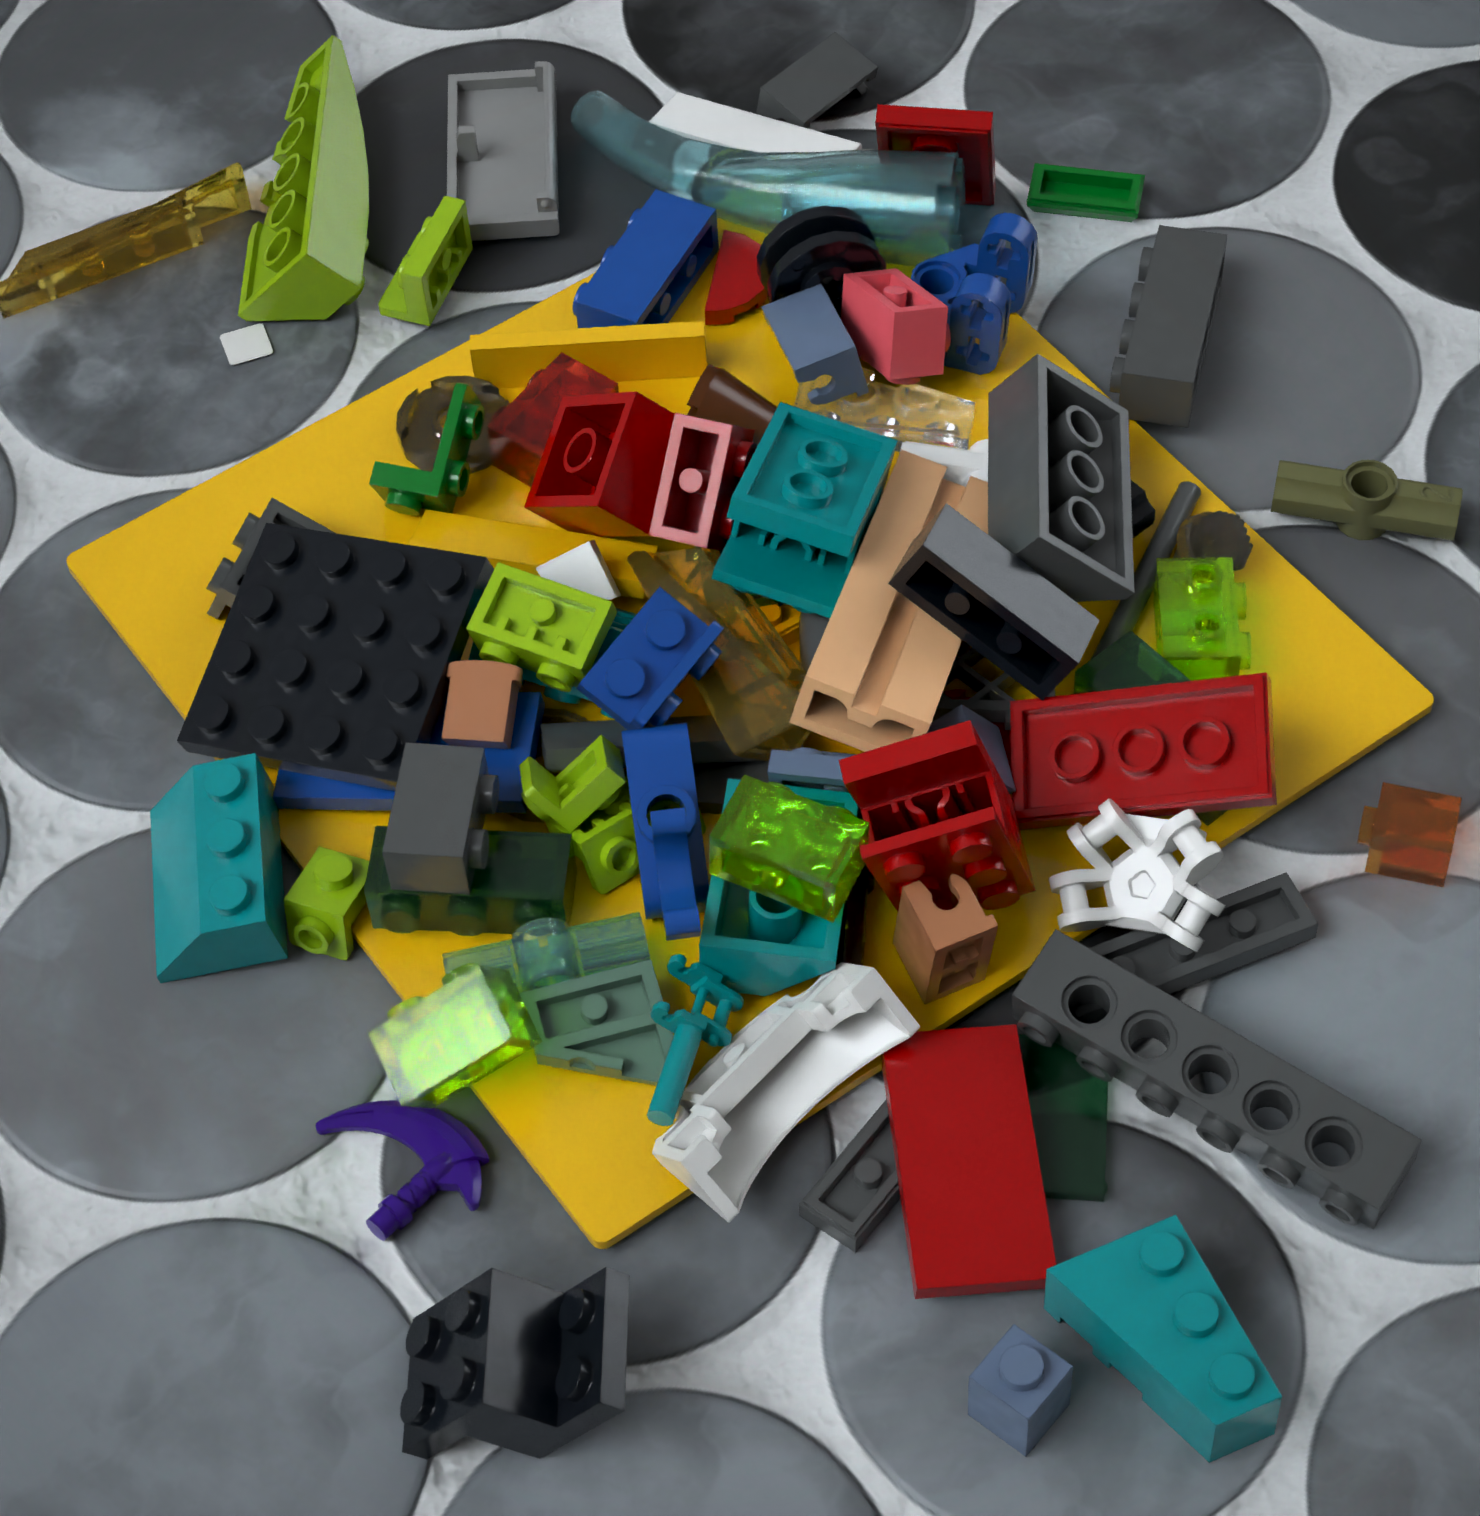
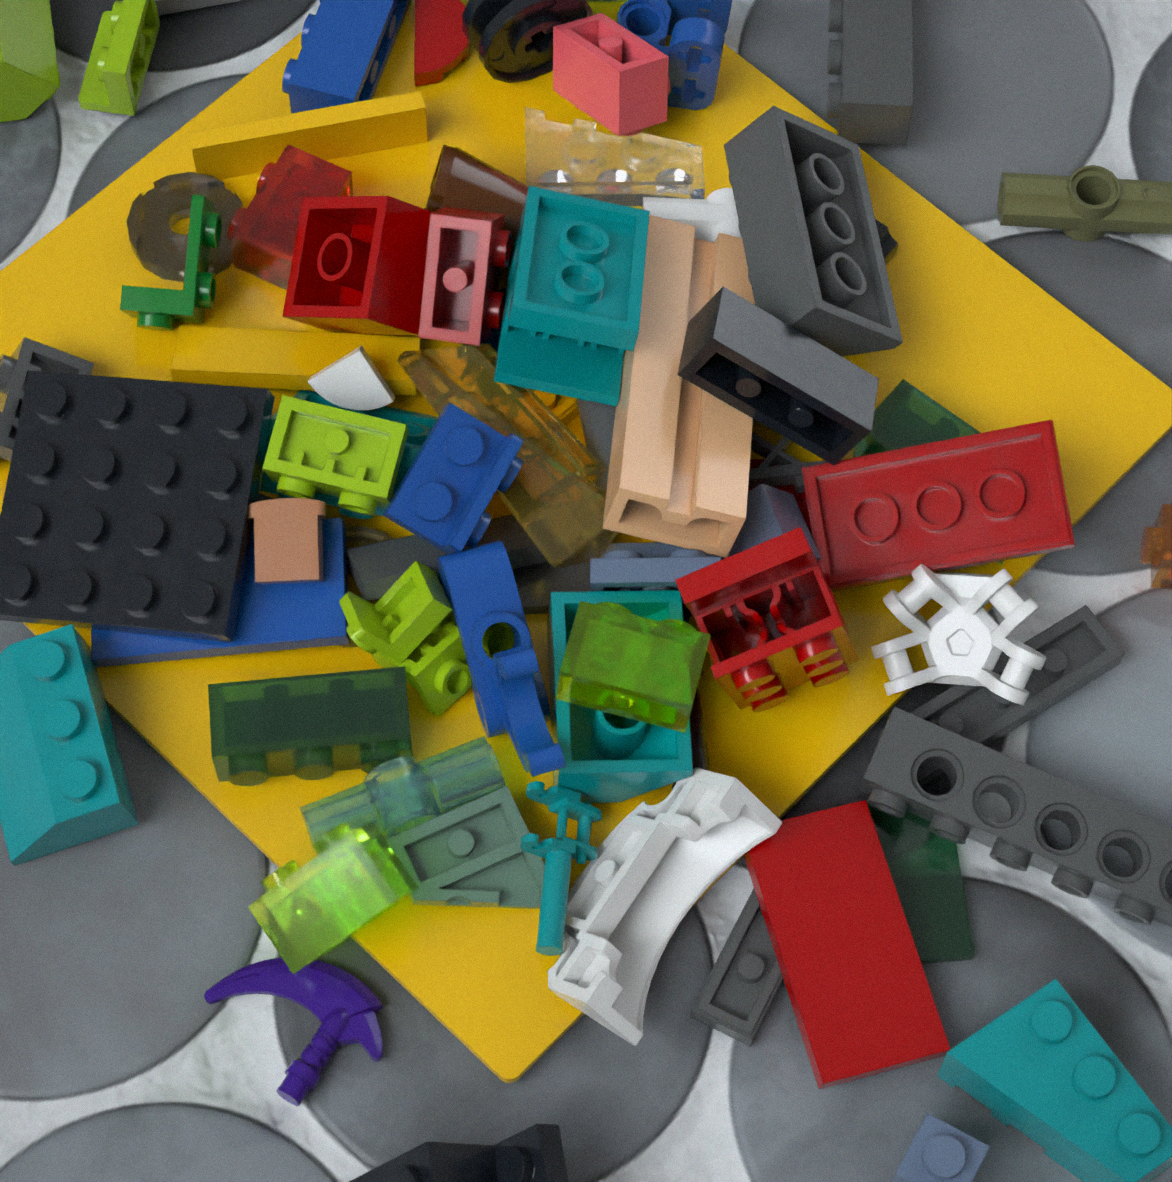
camera: 15 degrees left, 10 degrees up
(326, 903) = (170, 762): lime bracket -> none
(439, 819) = (275, 674): dark grey brick -> none
(816, 343) = (538, 103): sand blue hinge -> none
(940, 946) = (785, 739): nougat hinge -> none
(1160, 546) = (903, 292): dark grey bar -> none
(1199, 617) = (960, 356): clear neon green brick -> none
(1214, 536) = (956, 276): clear smoke piece -> none

